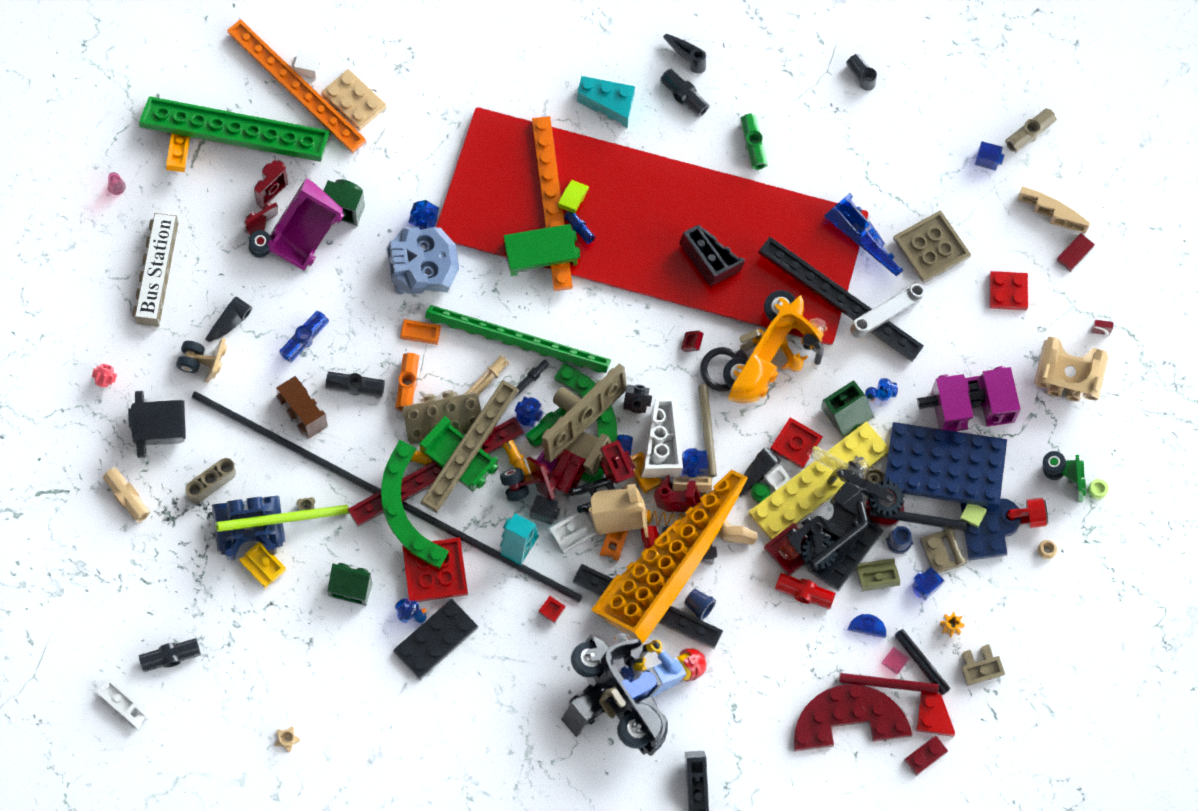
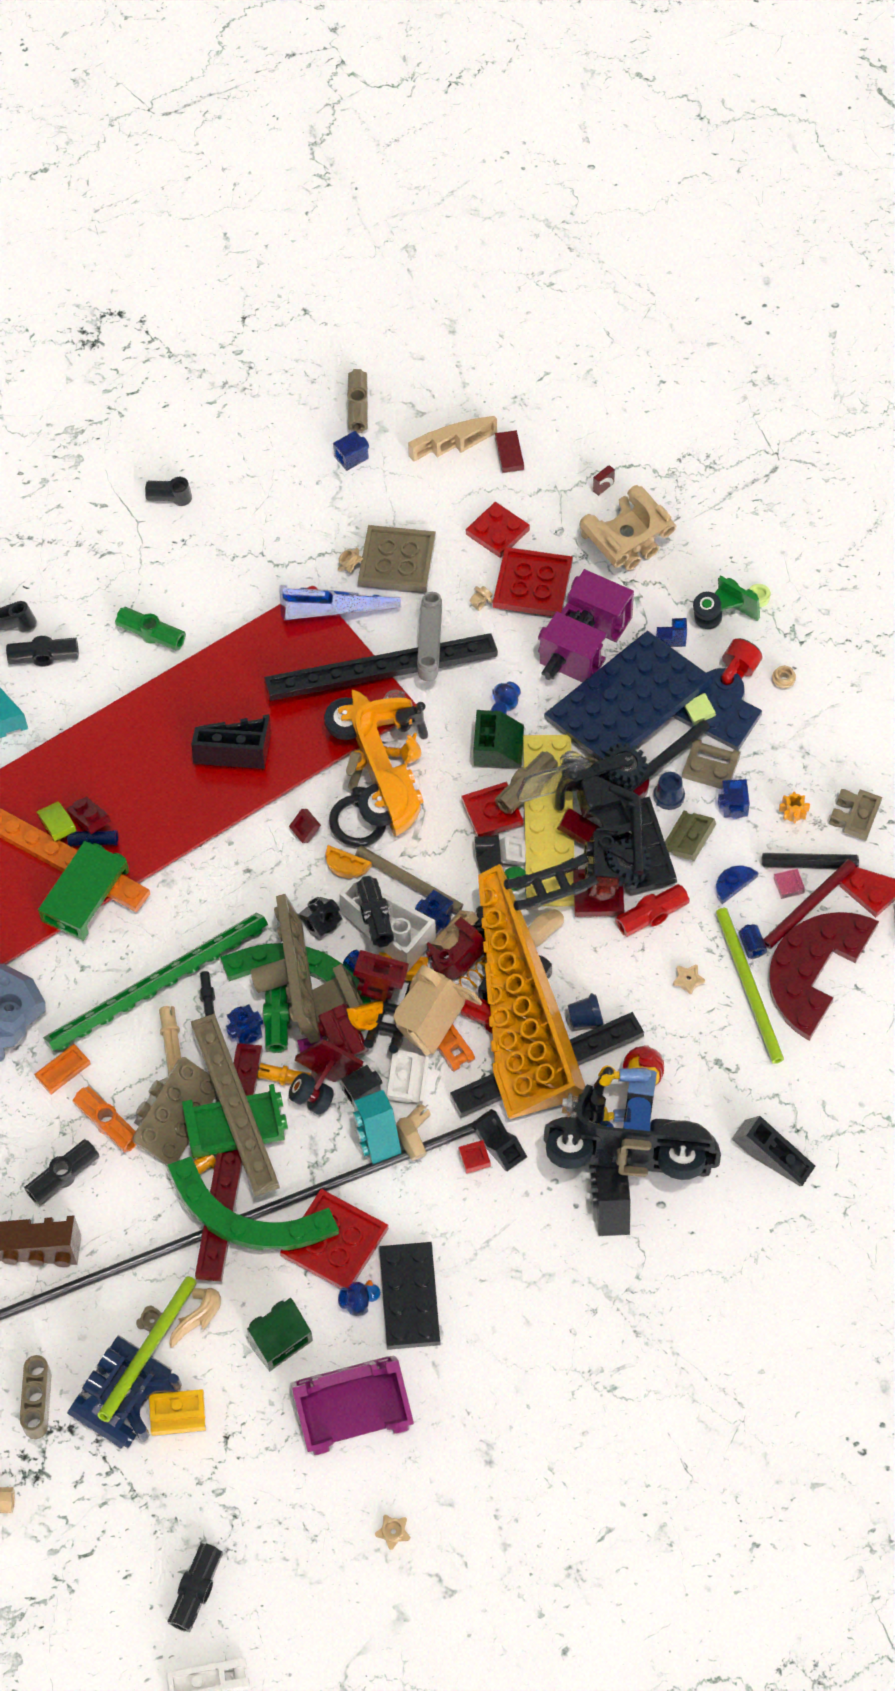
camera: 45 degrees left, 10 degrees down
(330, 532) = (201, 1316): none -> tan piece
(341, 655) = (352, 1403): none -> magenta windscreen
(535, 559) = (408, 1132): none -> tan arm
(574, 615) = (499, 1142): none -> black slope
(586, 476) = (365, 1015): none -> light orange plate
(591, 211) = (88, 815): none -> dark red plate
(656, 428) = (375, 911): none -> black piece
(686, 385) = (346, 864): none -> light orange plate
(771, 515) = (559, 873): none -> black piece
(776, 652) = (688, 985): none -> tan plate
(802, 687) = (750, 986): none -> lime piece
(822, 502) = (577, 826): none -> dark red tile
(832, 445) = (507, 799): none -> dark tan piece
(833, 667) = (752, 941): none -> clear blue piece
(905, 218) = (349, 559): none -> tan plate
(946, 319) = (481, 597): none -> tan plate
(985, 341) = (532, 581): none -> red plate
(1019, 457) = (675, 635): none -> clear blue piece

